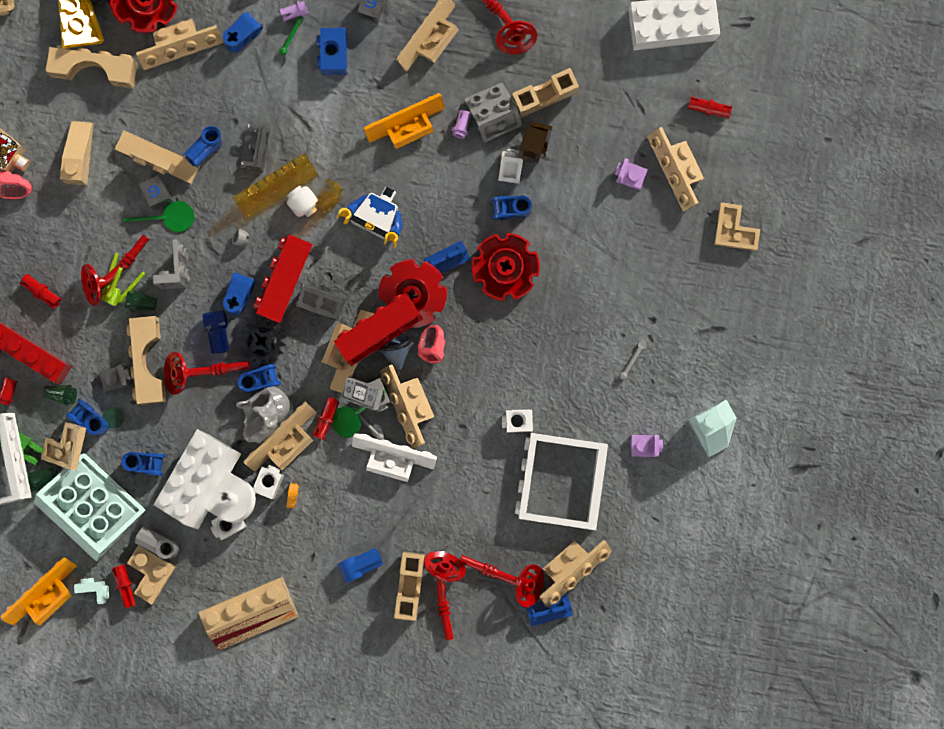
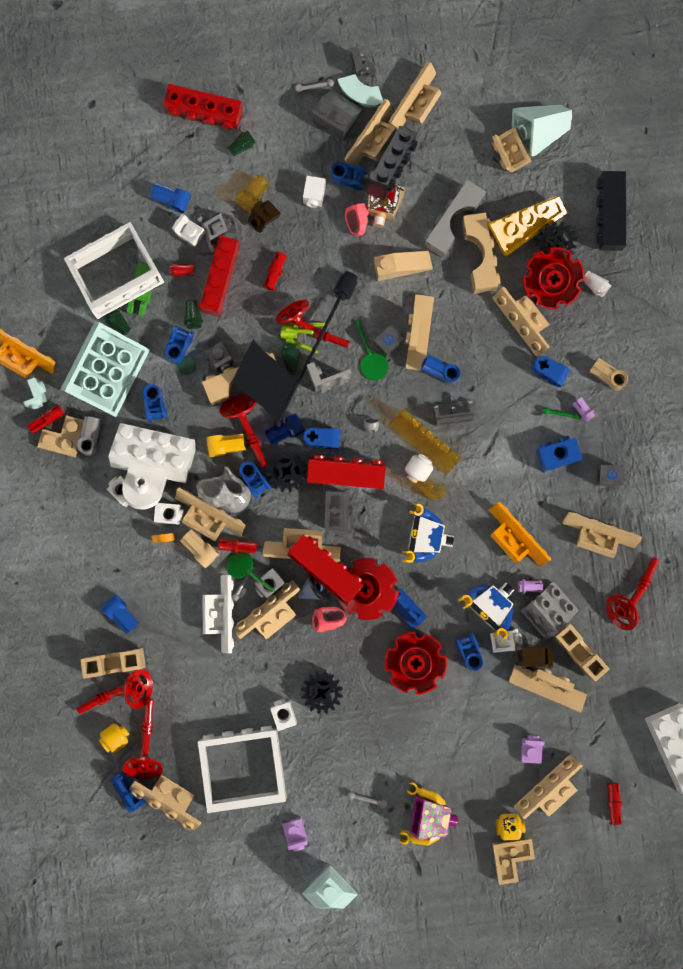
camera: 75 degrees right, 0 degrees up
(30, 63) = (467, 200): none -> light grey arch
(68, 450) = (145, 336): tan plate -> none
(157, 331) = (267, 379): none -> black flag
(212, 404) = (220, 445): none -> yellow piece
(249, 614) = (52, 531): tan slope -> none
(321, 456) = (202, 551): none -> tan piece
(362, 393) = (265, 572): tile -> none
(471, 169) = (492, 606): none -> torso
(489, 608) = (114, 738): none -> yellow head
(520, 369) = (329, 703): none -> black gear
(570, 136) = (548, 686): none -> tan bracket
(669, 300) = (429, 818): none -> torso
(702, 220) = (510, 826): none -> yellow head

